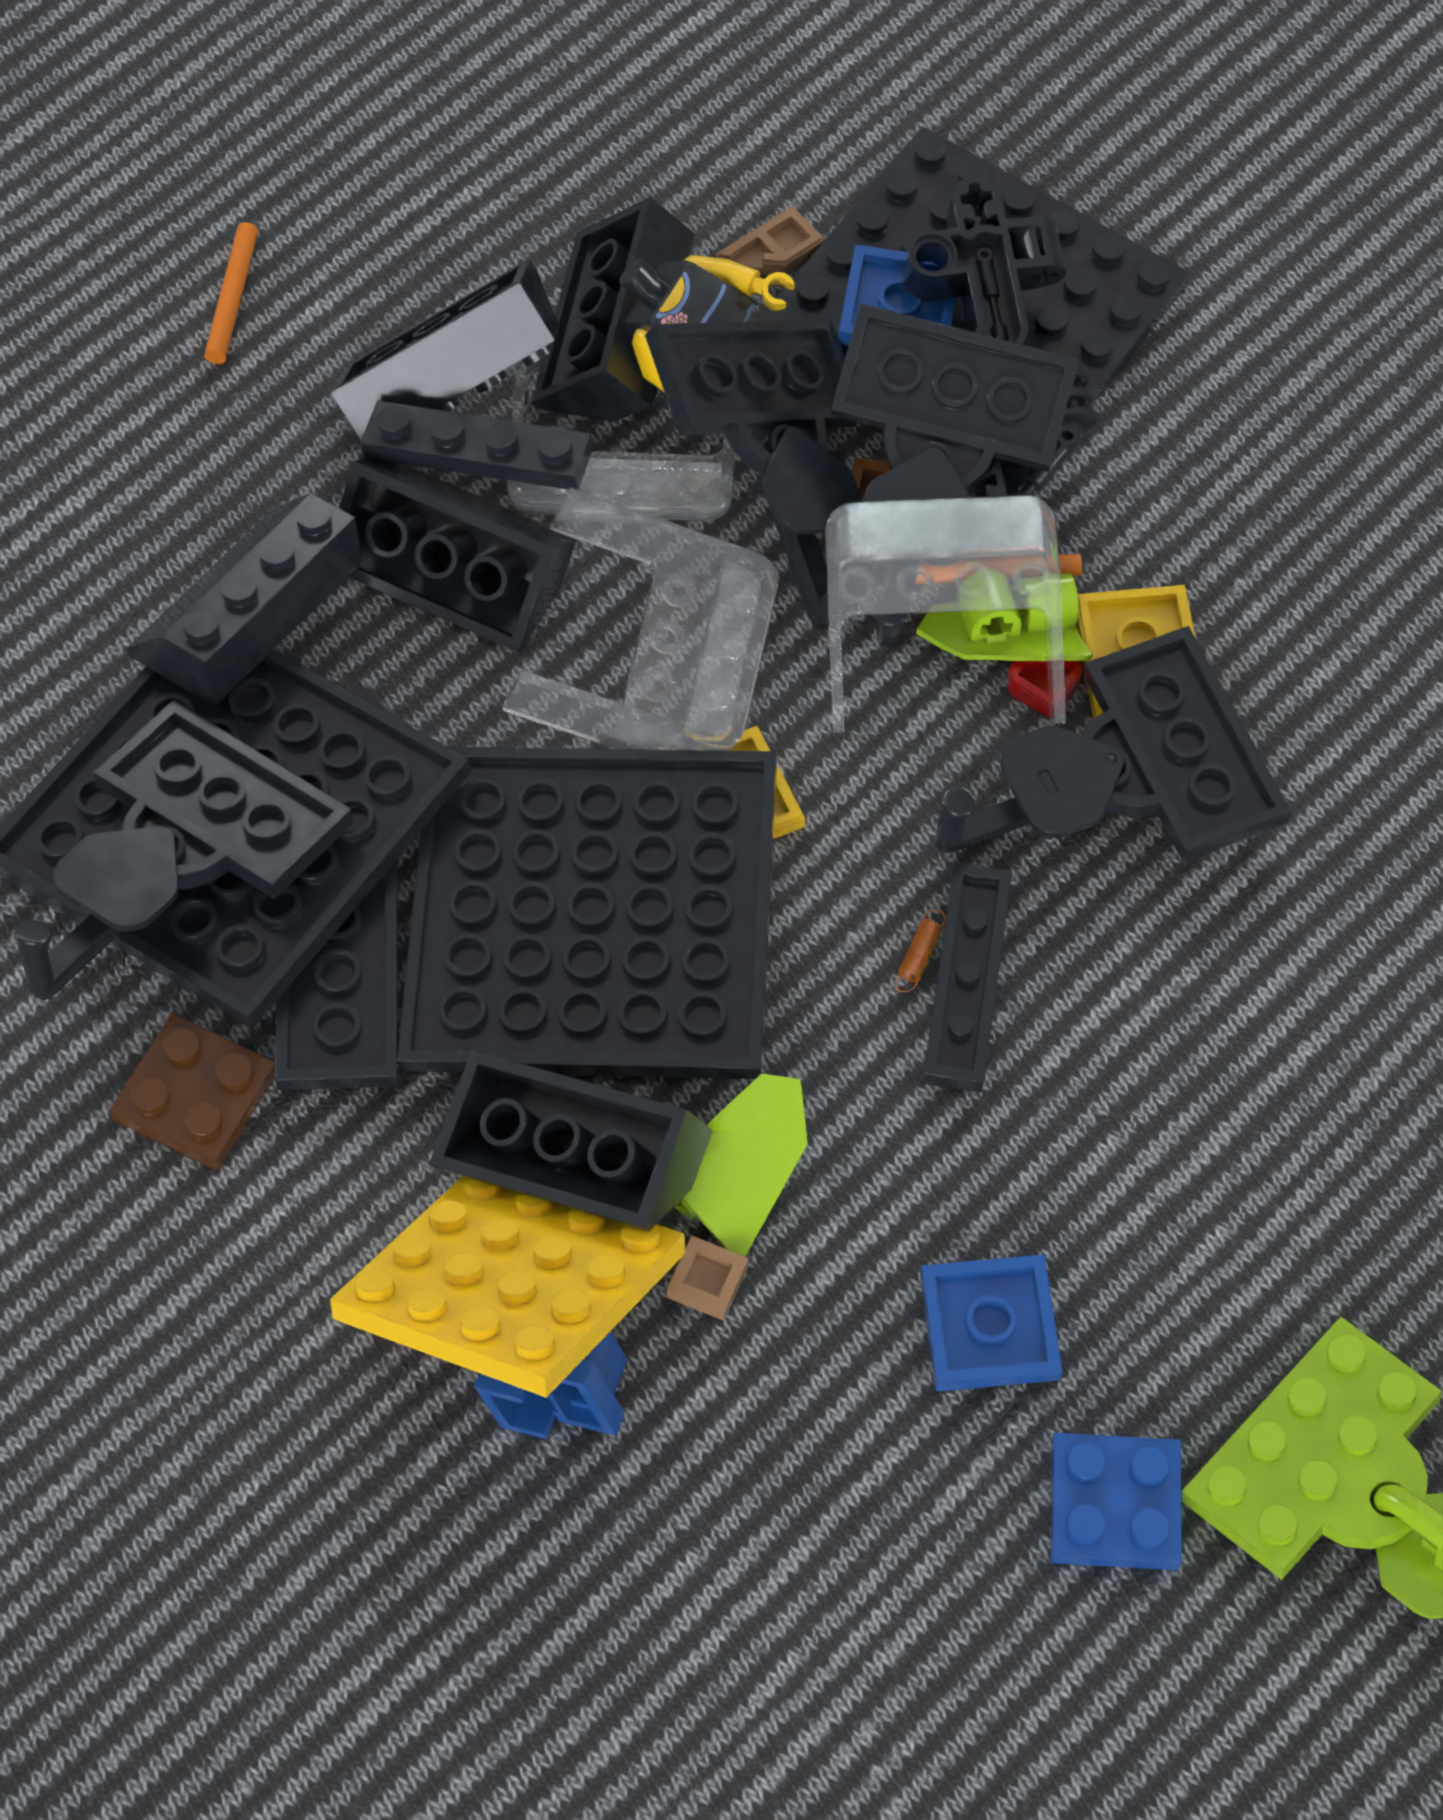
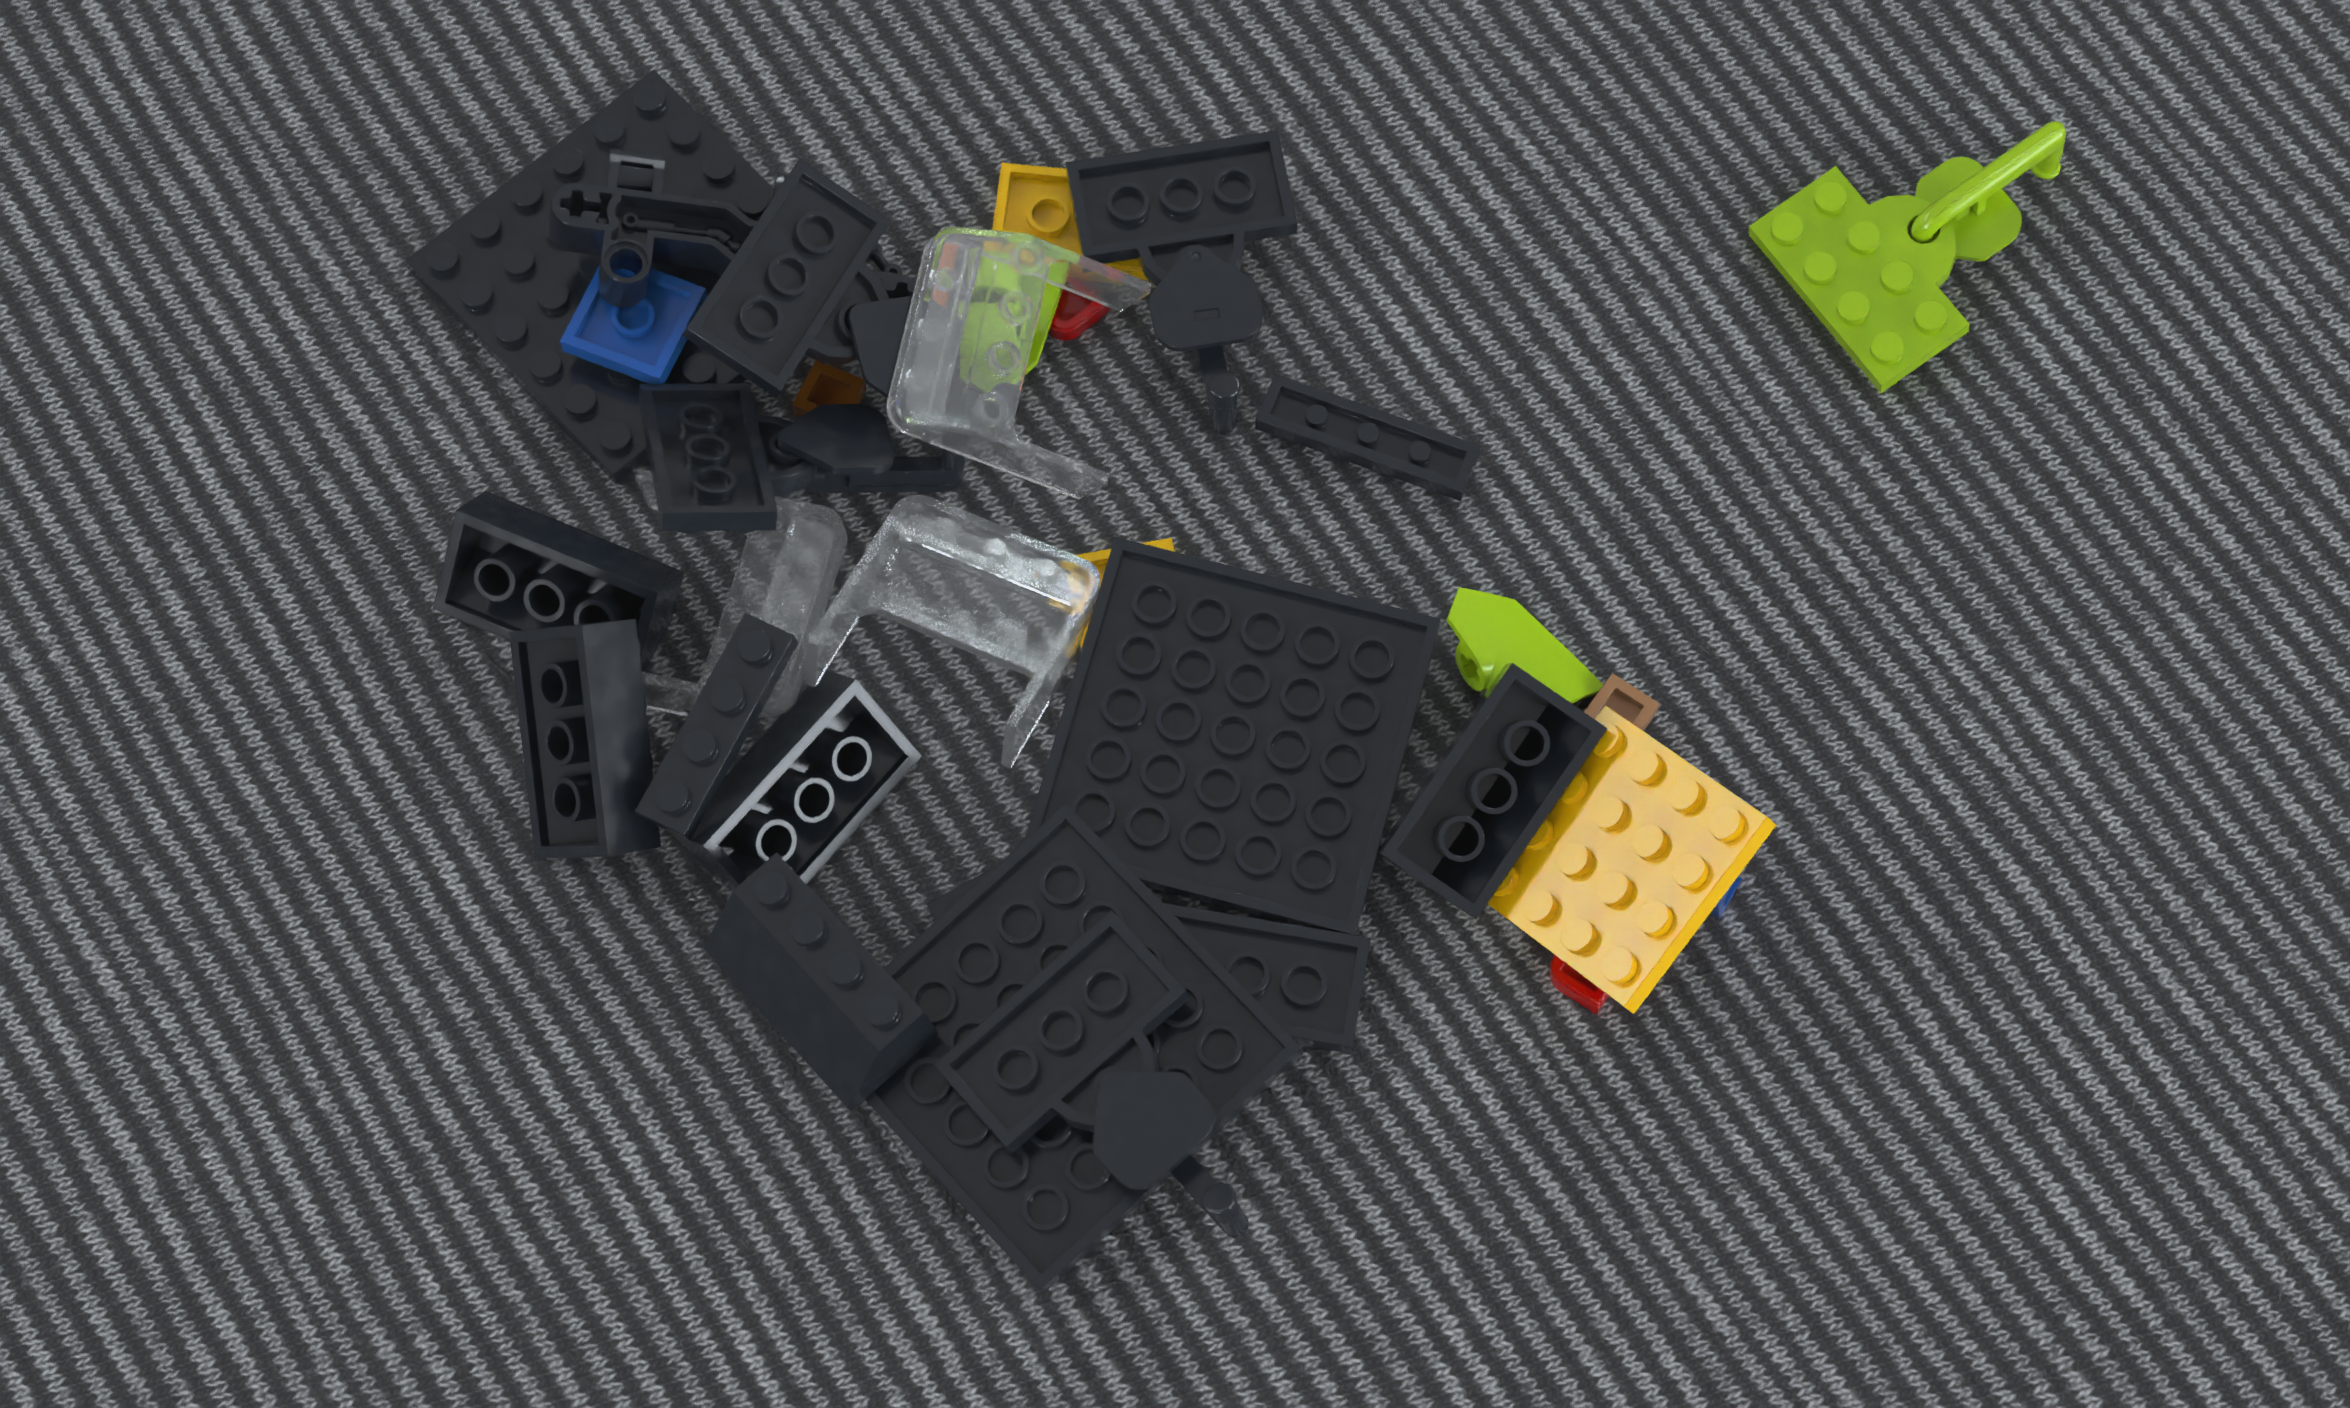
camera: 75 degrees left, 5 degrees up
(194, 1091) = (1337, 1128): reddish brown plate -> none
(231, 293) = (411, 954): orange bar -> none
(692, 292) = (612, 499): torso -> none
(776, 245) = (507, 428): medium nougat tile -> none
(920, 950) = (1327, 473): orange piece -> none
(990, 1323) = (1704, 495): blue plate -> none
(1116, 1501) = (1877, 440): blue plate -> none

